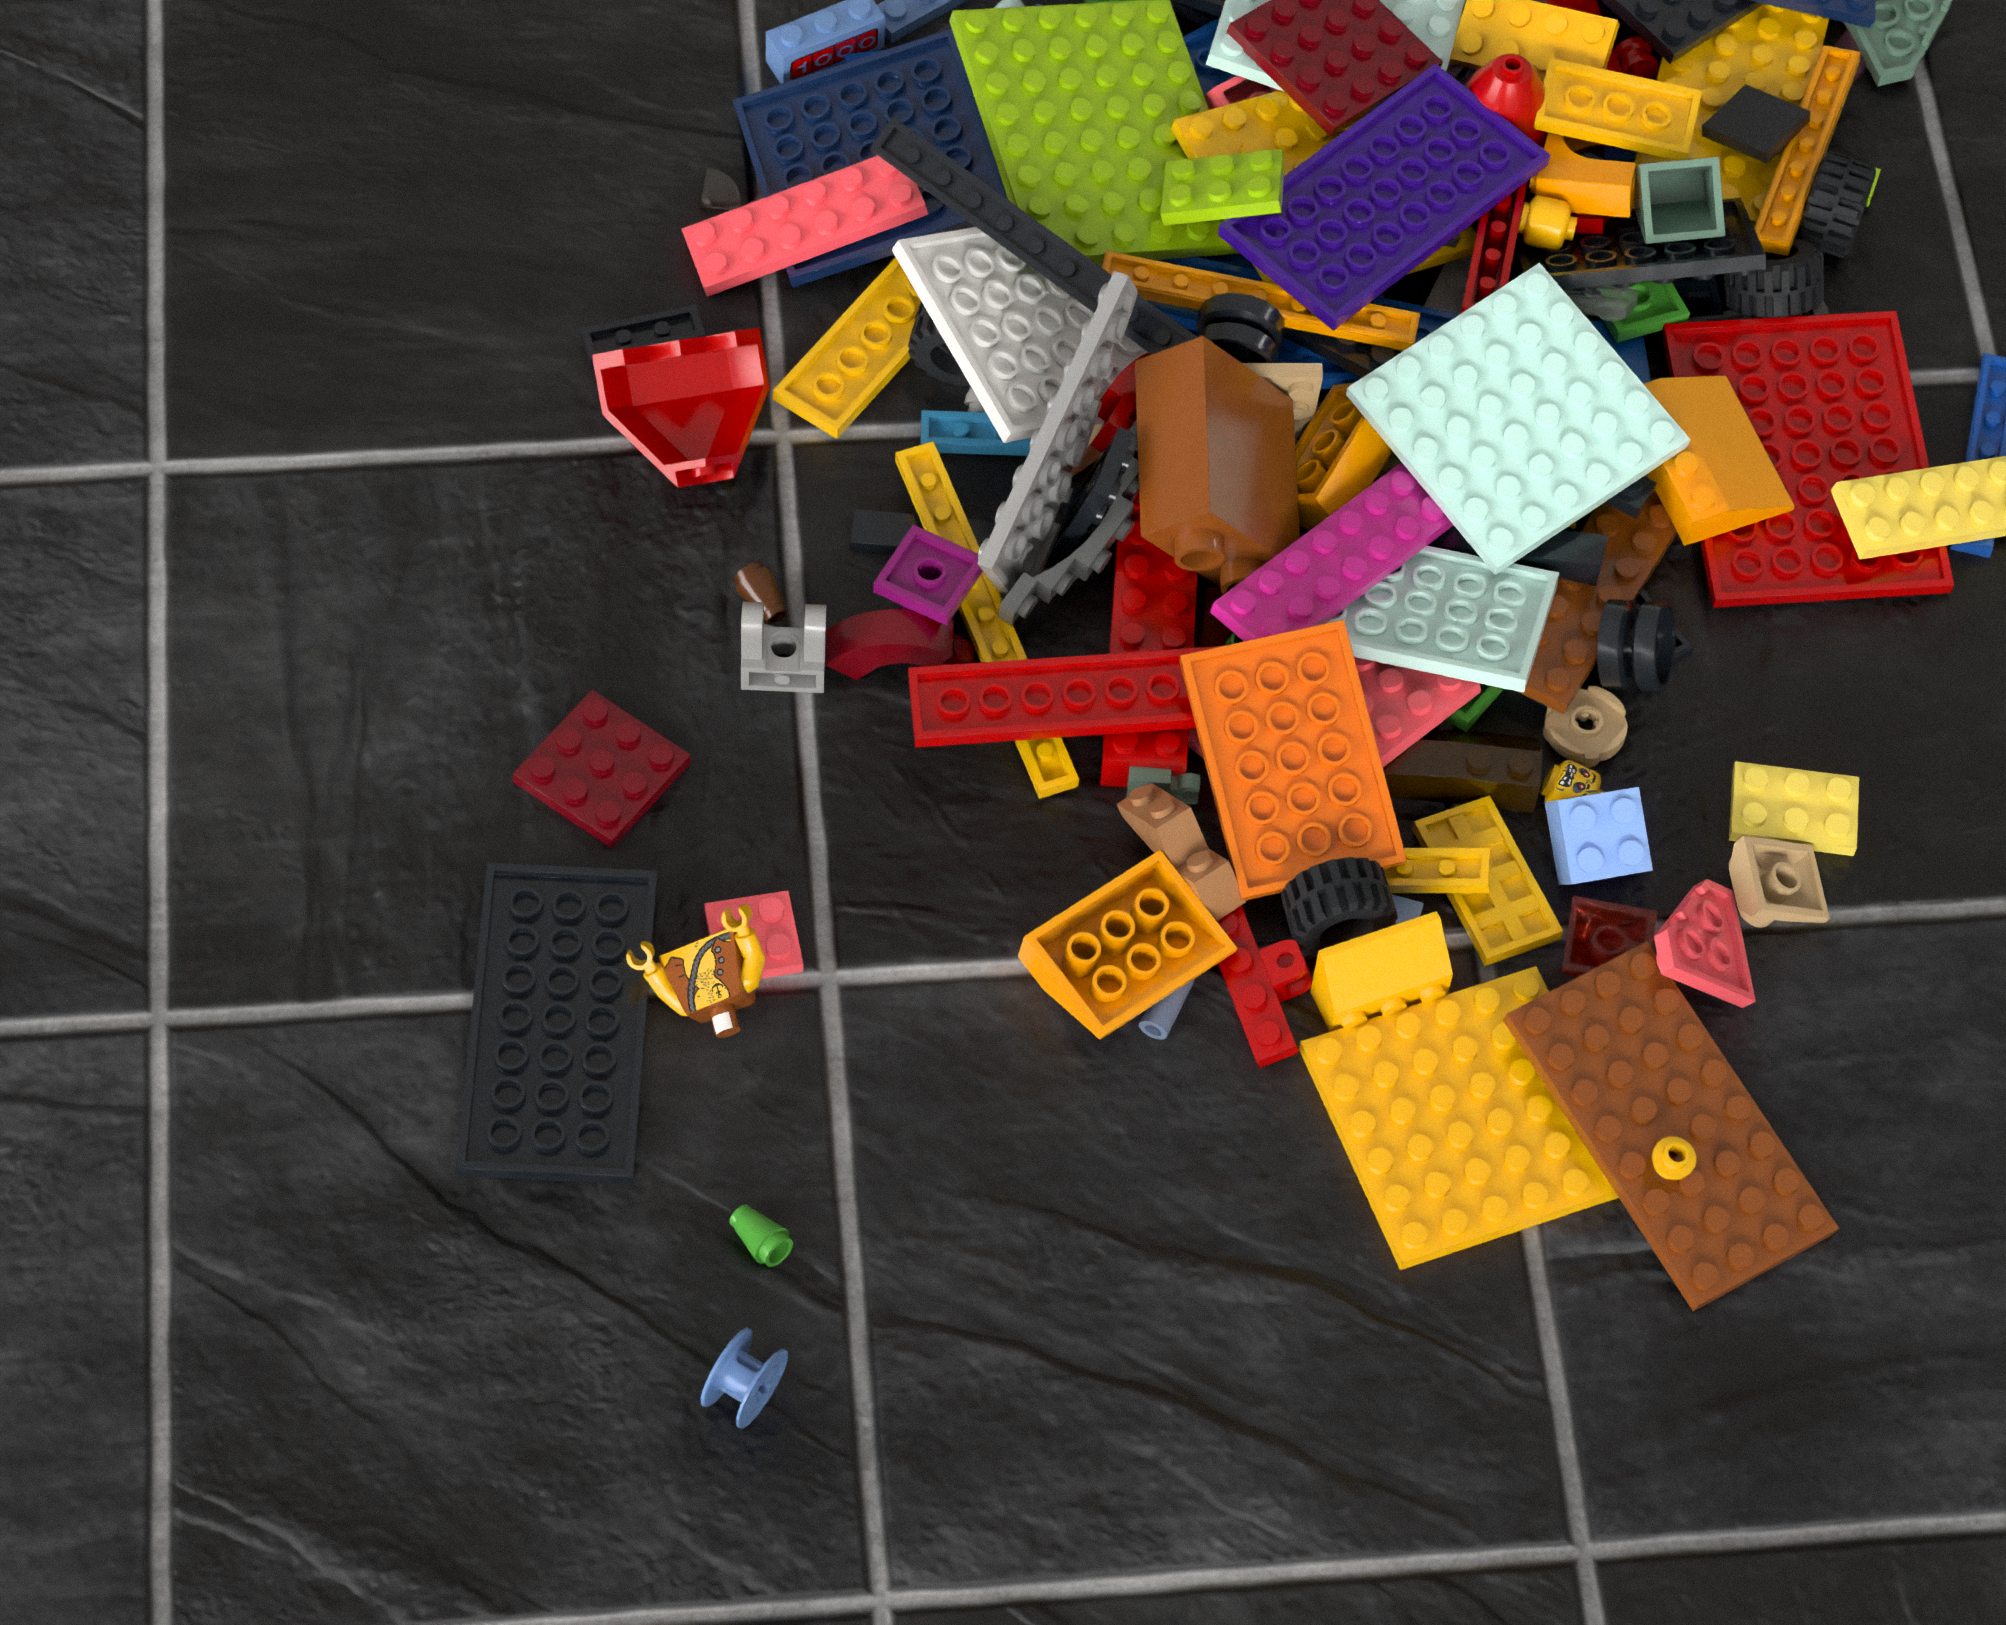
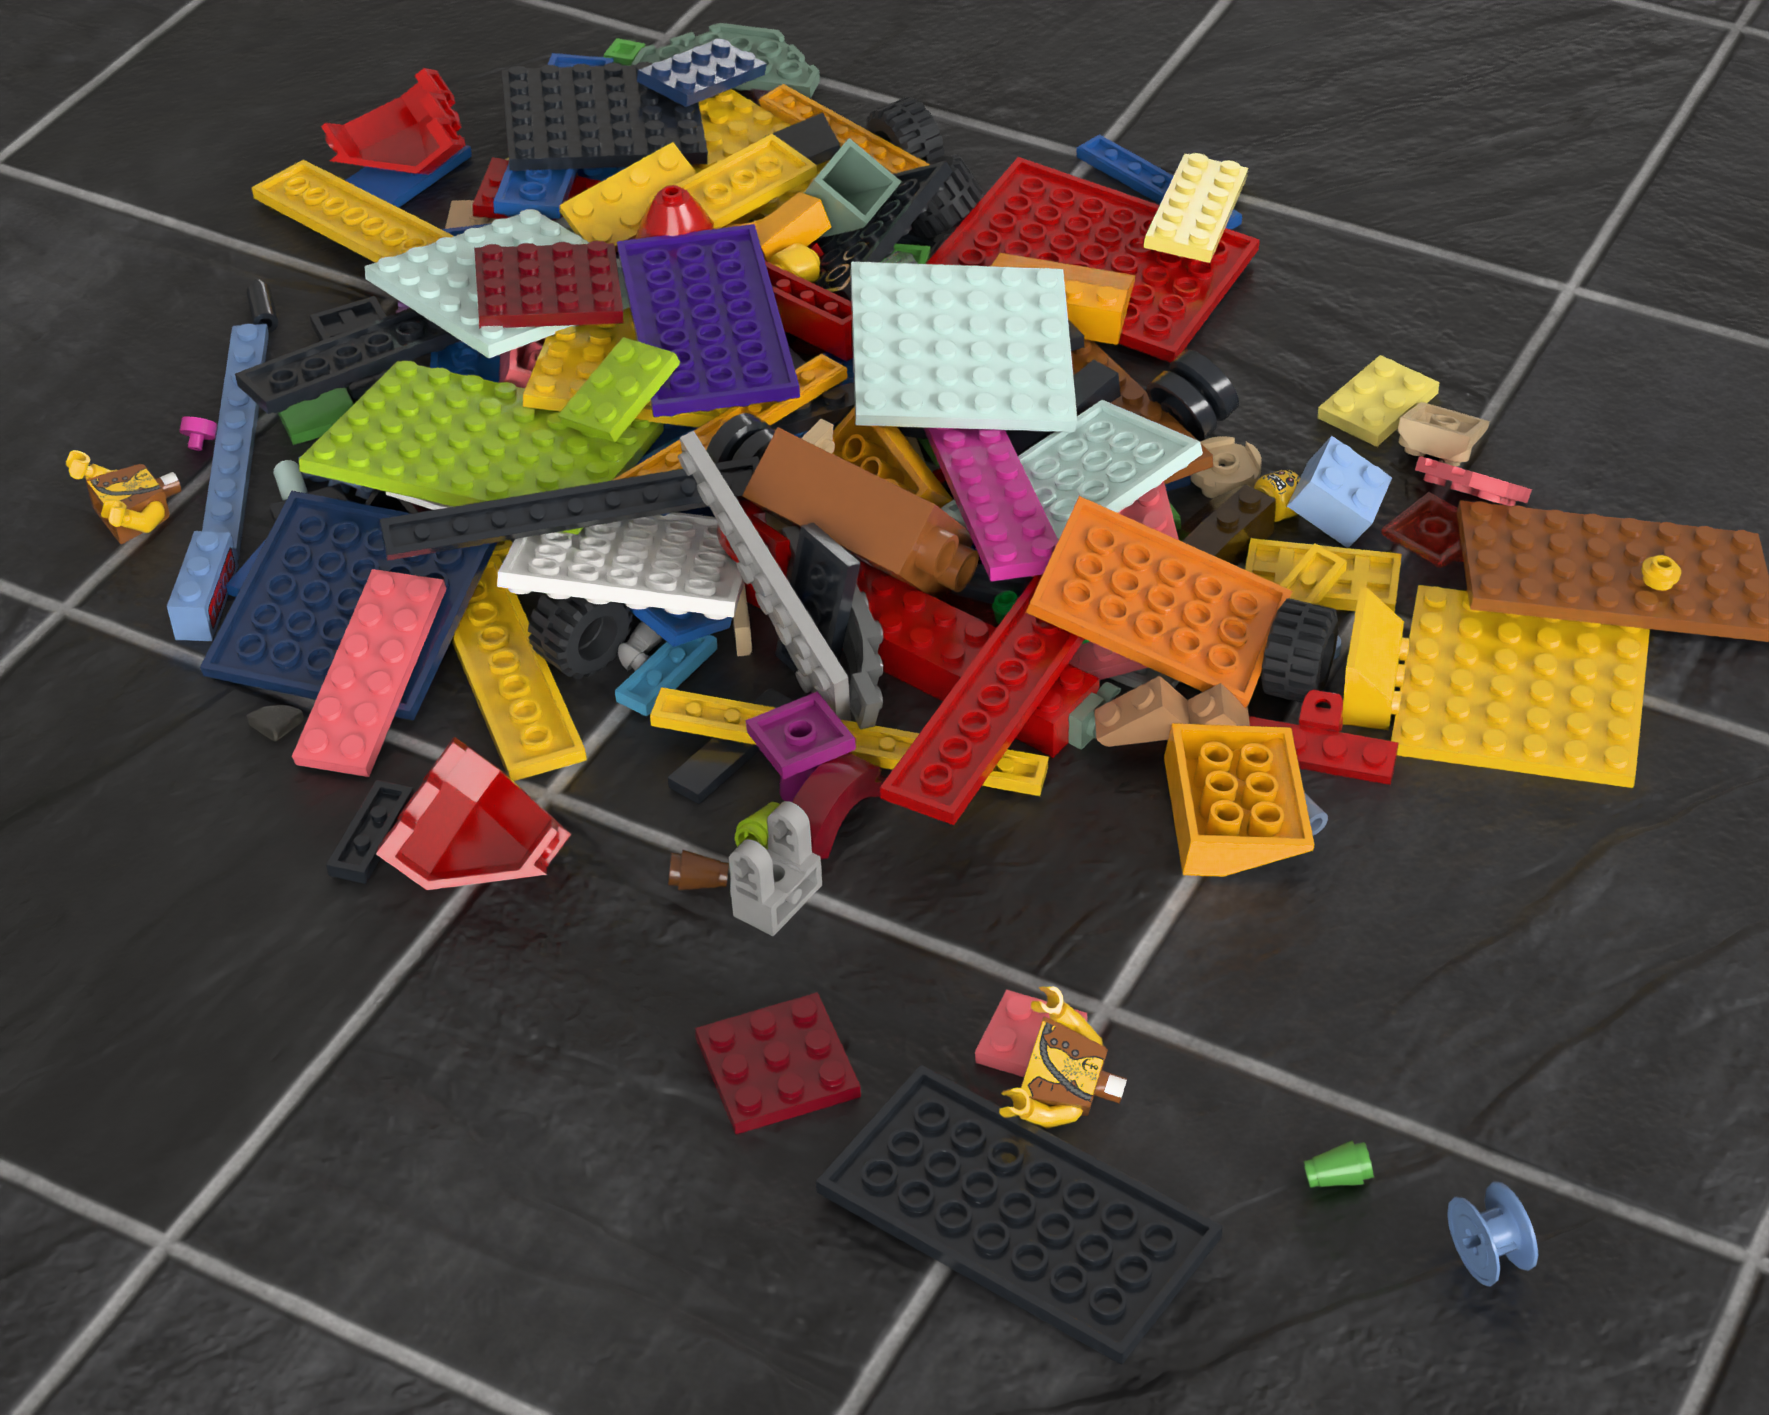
camera: 50 degrees left, 15 degrees down
(843, 606) = (755, 826): none -> lime cone

